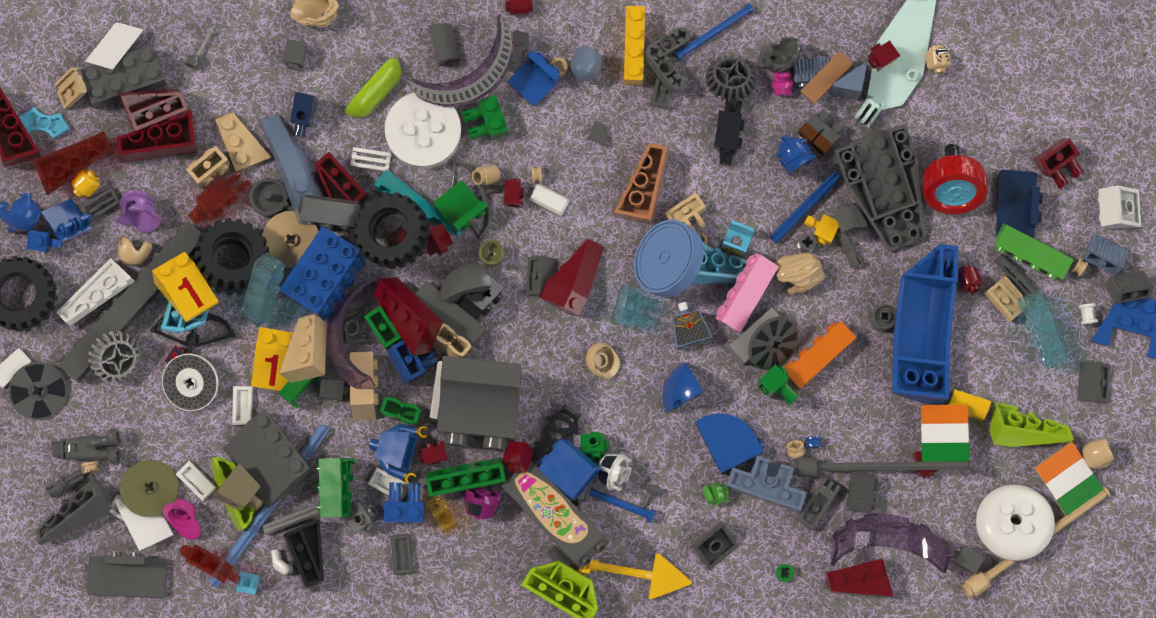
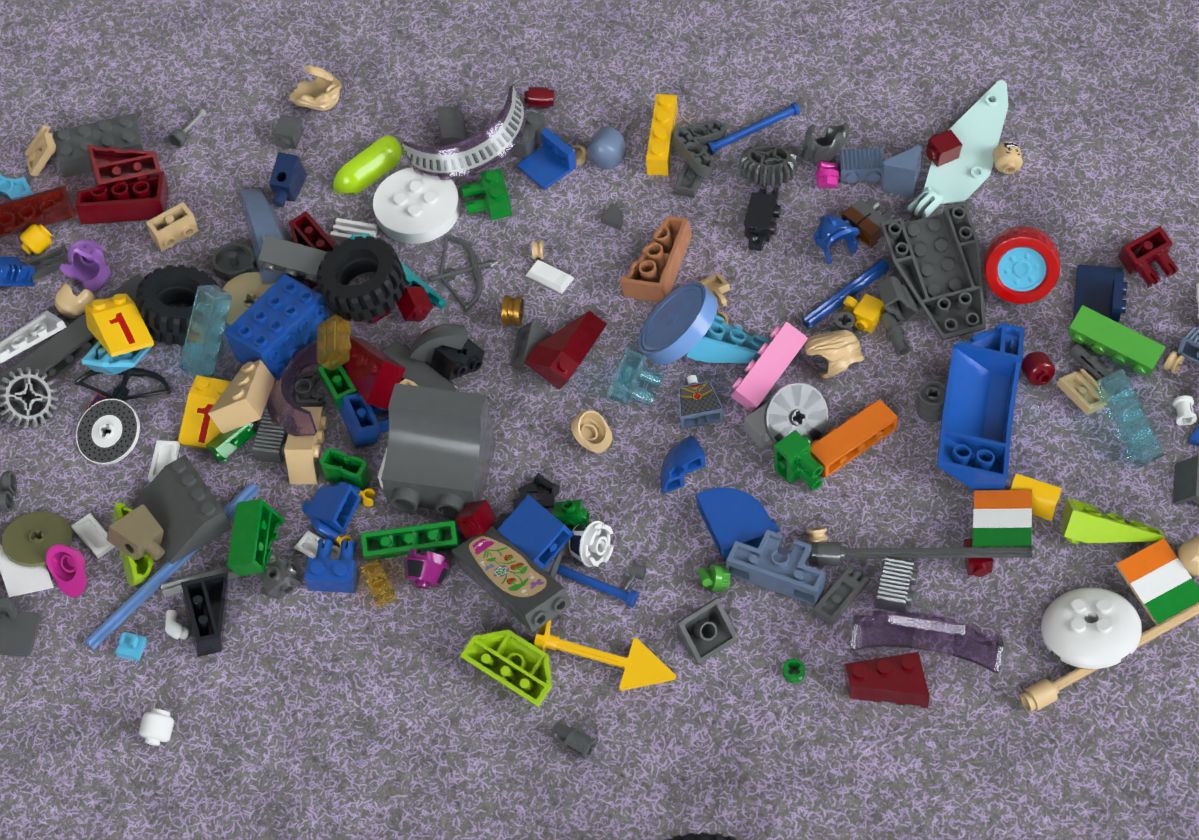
camera: 15 degrees right, 25 degrees down
(114, 45) = (95, 115): white sticker -> none
(209, 563) = (87, 613): clear red hinge -> none
(216, 198) = (181, 252): clear red hinge -> none
(240, 143) = (214, 212): tan wing -> none
(377, 297) = (333, 342): none -> clear yellow brick
(402, 554) = (322, 625): dark grey tile -> none
(433, 454) = (377, 517): dark red brick -> none
(460, 206) = (446, 273): green bracket -> none
(486, 175) = (480, 245): tan brick -> none
(491, 253) = (474, 320): olive piece -> none
(513, 193) = (508, 266): dark red brick -> none
(522, 242) = (512, 310): none -> pearl gold wheel
(742, 231) = (765, 316): medium azure piece -> none
(813, 442) = (839, 528): blue bush -> none
(826, 77) = (871, 167): medium nougat tile -> none
(968, 559) = (1029, 665): dark grey brick -> none

